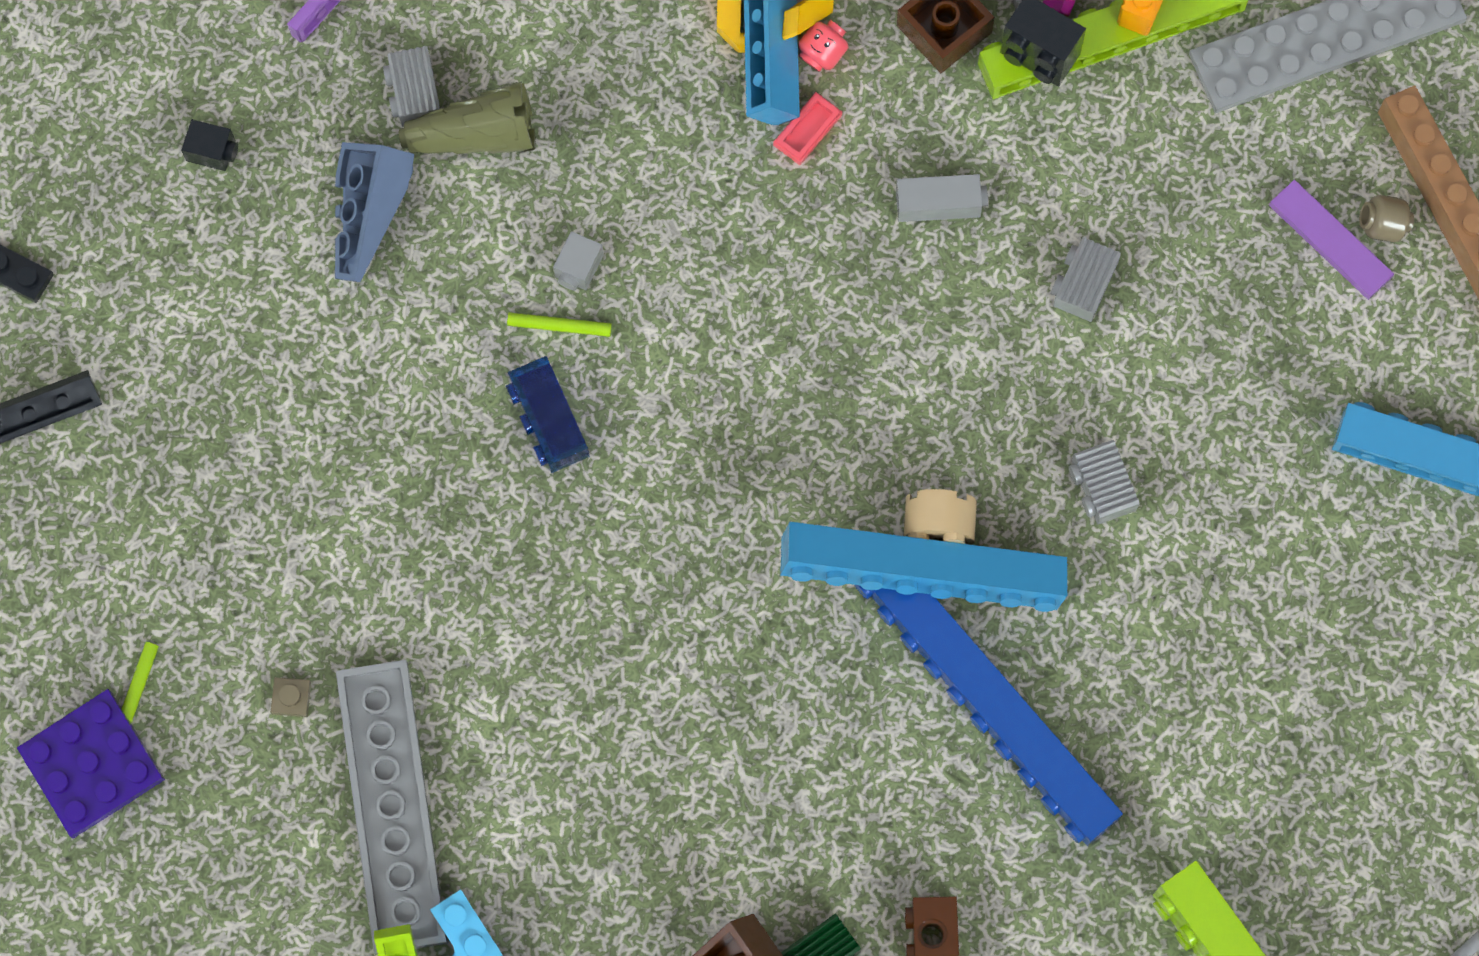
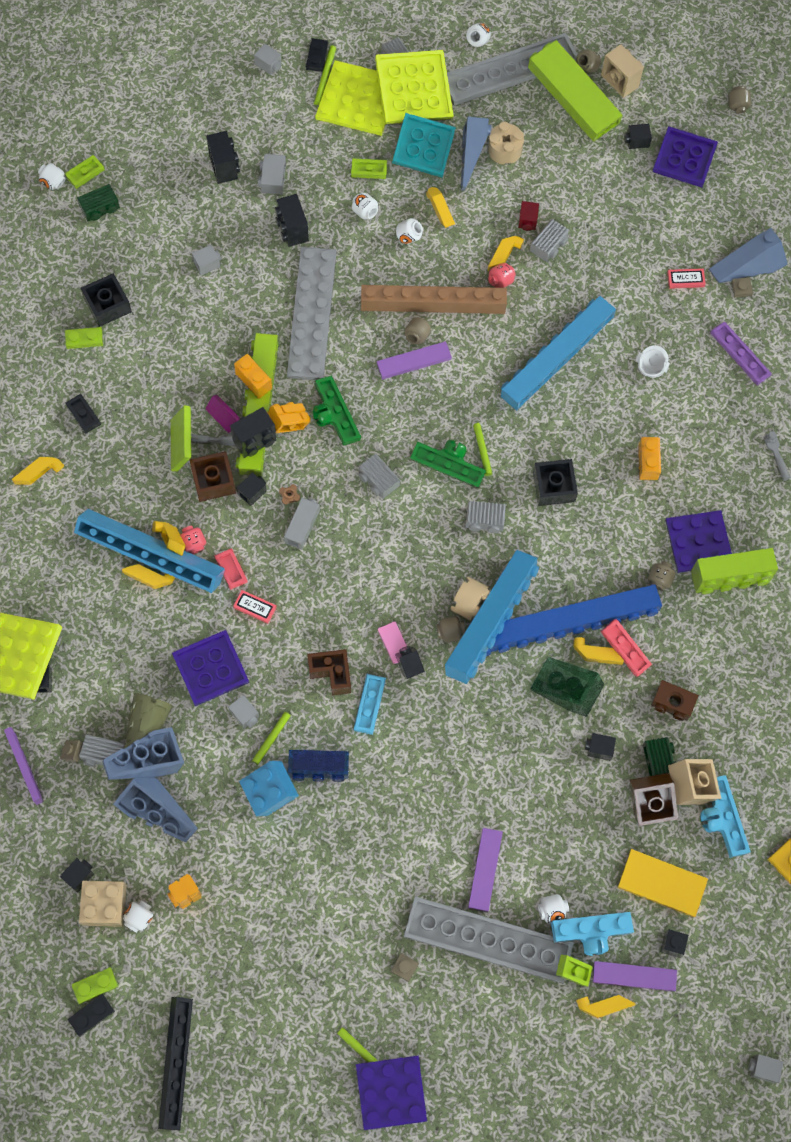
camera: 70 degrees left, 5 degrees down
(59, 255) = (94, 985): none -> lime plate
(181, 203) = (102, 903): none -> tan brick
(186, 262) = (137, 916): none -> white head
(250, 309) = (184, 892): none -> light orange brick
(394, 39) = (71, 750): none -> dark tan plate
(428, 149) = (148, 757): none -> sand blue wedge
(469, 355) = (268, 788): none -> dark azure brick
(485, 885) = (553, 908): none -> white head
(502, 752) = (485, 870): none -> medium lavender tile
(626, 177) = (210, 668): none -> dark purple plate
(688, 448) = (369, 704): none -> medium azure tile
(718, 361) = (332, 665): none -> reddish brown brick
(762, 195) = (254, 606): none -> tile
(784, 475) = (409, 662): none -> black brick
(793, 846) = (600, 746): none -> black brick
(810, 438) = (392, 640): none -> bright pink tile
(873, 749) = (568, 686): none -> clear green slope
(876, 513) = (450, 629): none -> dark tan head
(954, 771) = (596, 653): none -> yellow piece
(958, 92) = (251, 488): none -> black brick
(981, 165) = (289, 499): none -> medium nougat plate
(987, 814) = (626, 647): none -> coral tile
(1108, 84) = (289, 417): none -> light orange brick
(1148, 821) = (662, 575): none -> dark tan head
(1164, 155) = (334, 411): none -> green plate
(1172, 380) = (449, 462): none -> green plate
(1224, 567) = (555, 482): none -> black brick
(1228, 425) = (482, 449): none -> lime bar
(1253, 857) = (697, 538): none -> dark purple plate
(1357, 708) = (649, 458): none -> light orange brick

